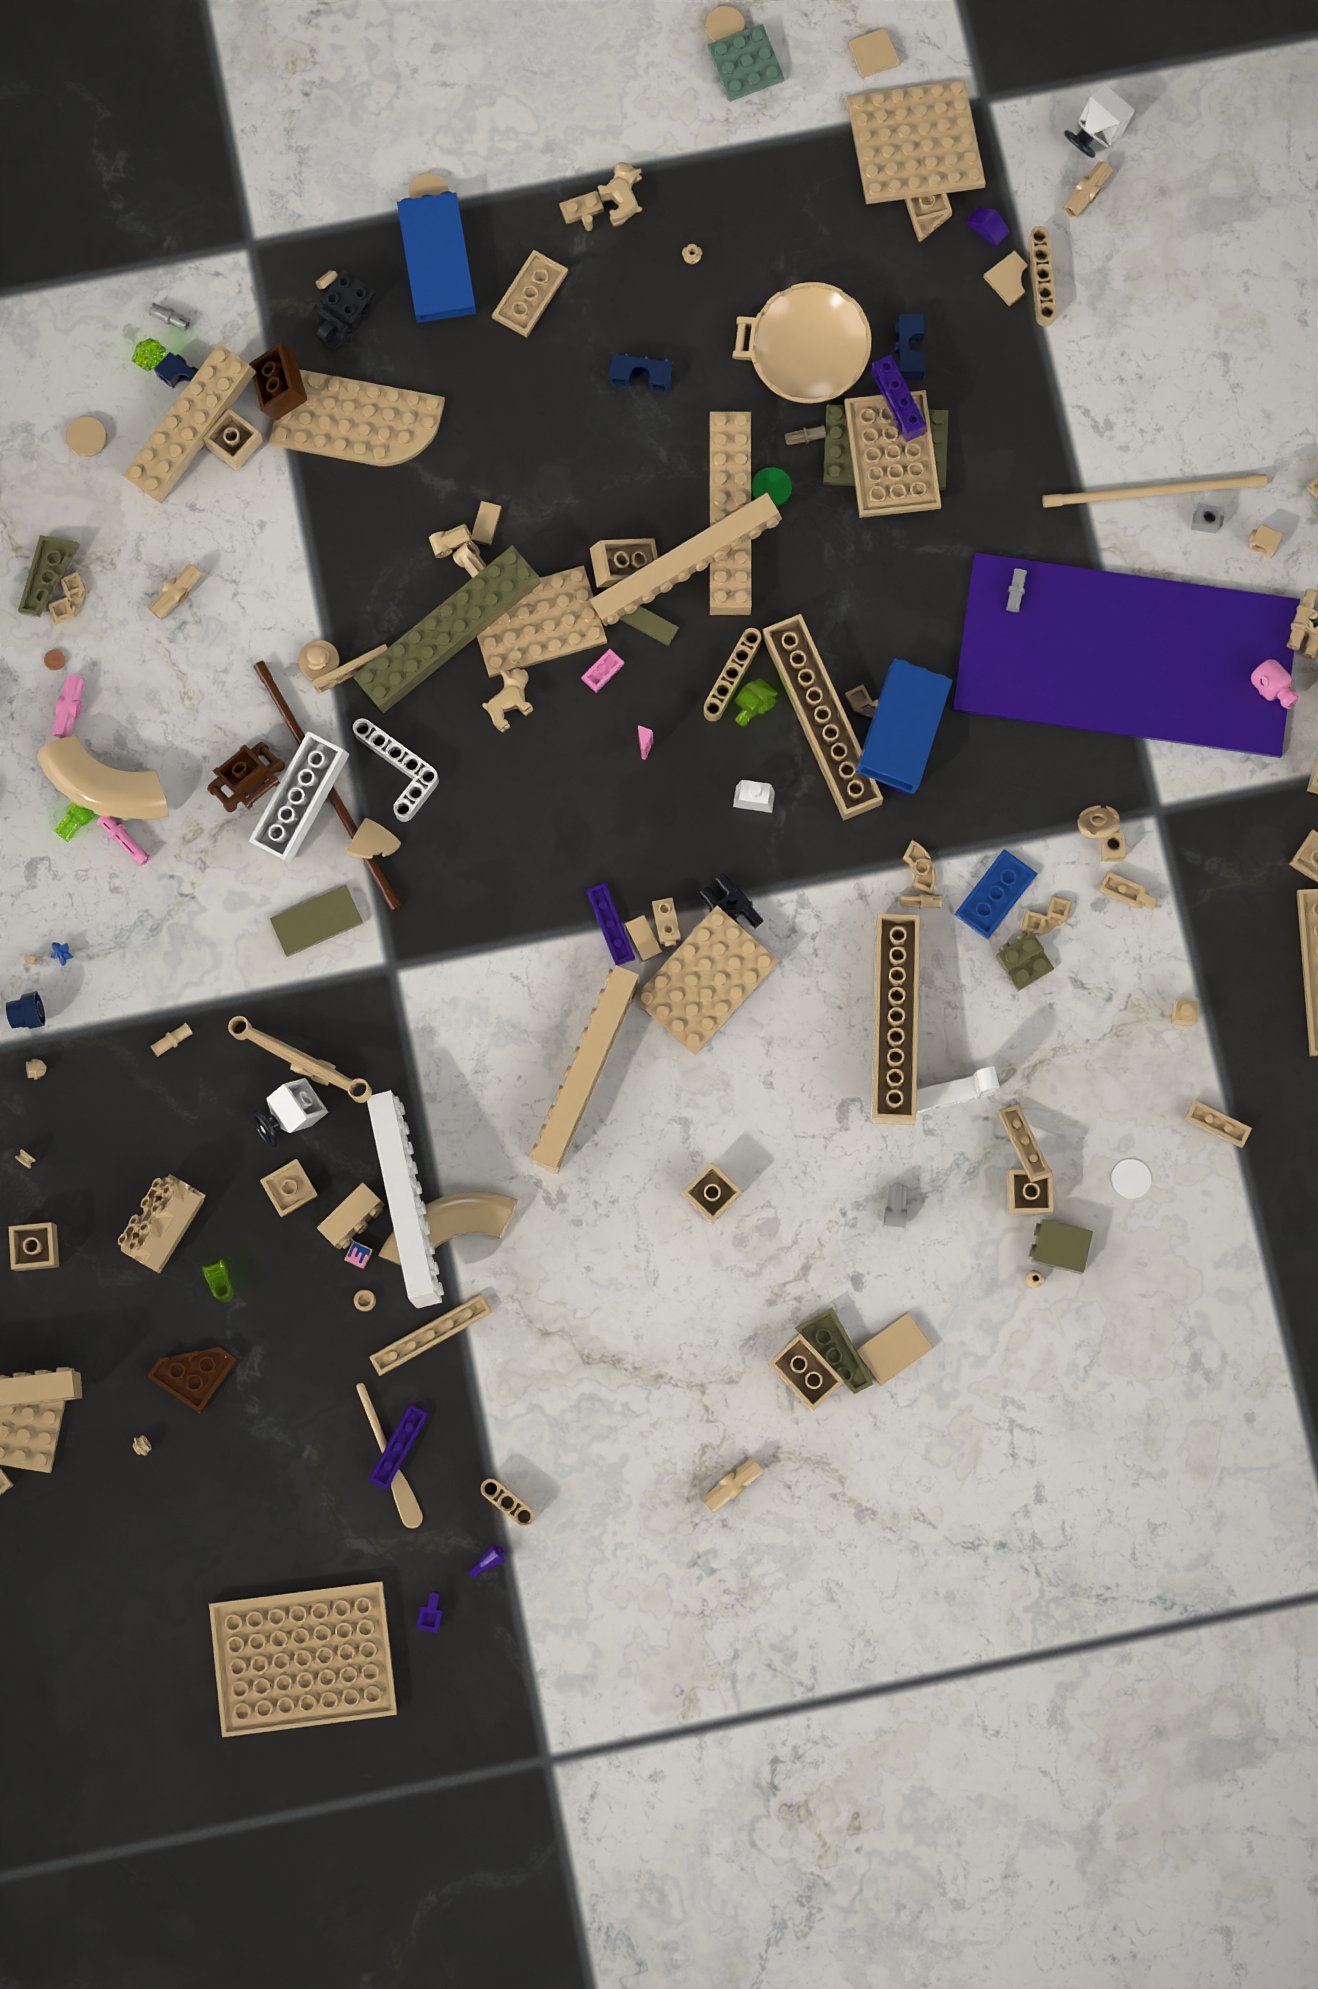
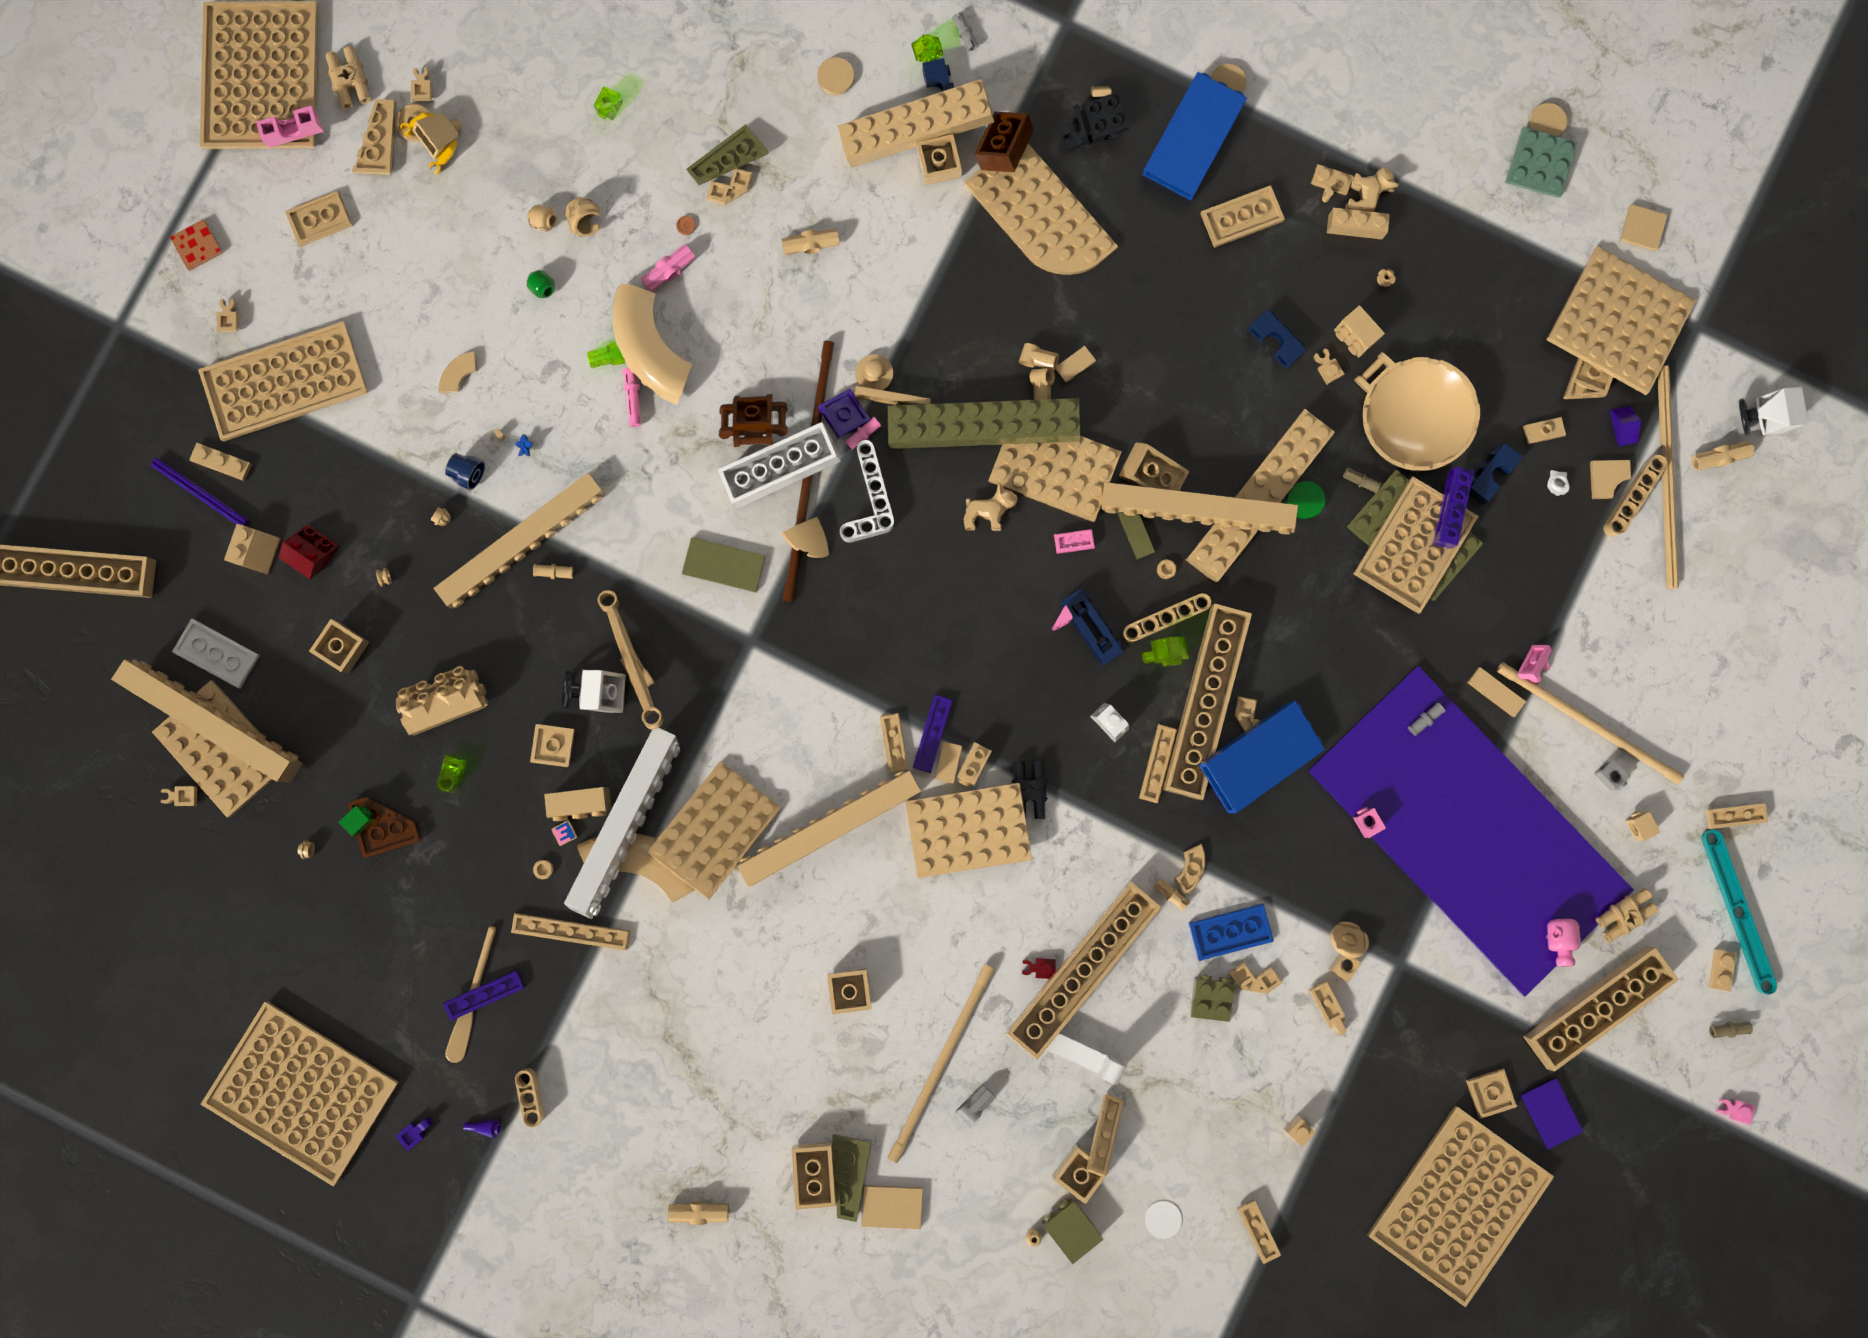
camera: 30 degrees right, 5 degrees up
(121, 1036) = (519, 541): none -> tan brick
(168, 1381) = (357, 820): none -> green brick
(319, 713) = (844, 413): none -> dark purple tile
(349, 718) = (863, 433): none -> bright pink pin
(487, 1149) = (714, 830): none -> tan plate
(583, 957) = (894, 742): none -> tan tile
(632, 226) = (1358, 223): none -> tan brick
(699, 634) = (1166, 569): none -> tan tile
(704, 314) = (1358, 332): none -> tan brick
(704, 365) = (1329, 370): none -> tan plate
(706, 740) = (1103, 629): none -> dark blue brick
(819, 1100) = (900, 1144): none -> tan piece
(822, 801) = (1157, 763): none -> tan tile
(861, 1047) = (1043, 968): none -> dark red plate
(925, 280) = (1544, 430): none -> tan plate
(970, 314) = (1558, 483): none -> white animal
(1044, 707) = (1376, 826): none -> bright pink brick
(1057, 524) = (1496, 692): none -> tan tile
(1058, 242) = (1668, 479): none -> tan axle
(1069, 475) = (1534, 663): none -> bright pink tile

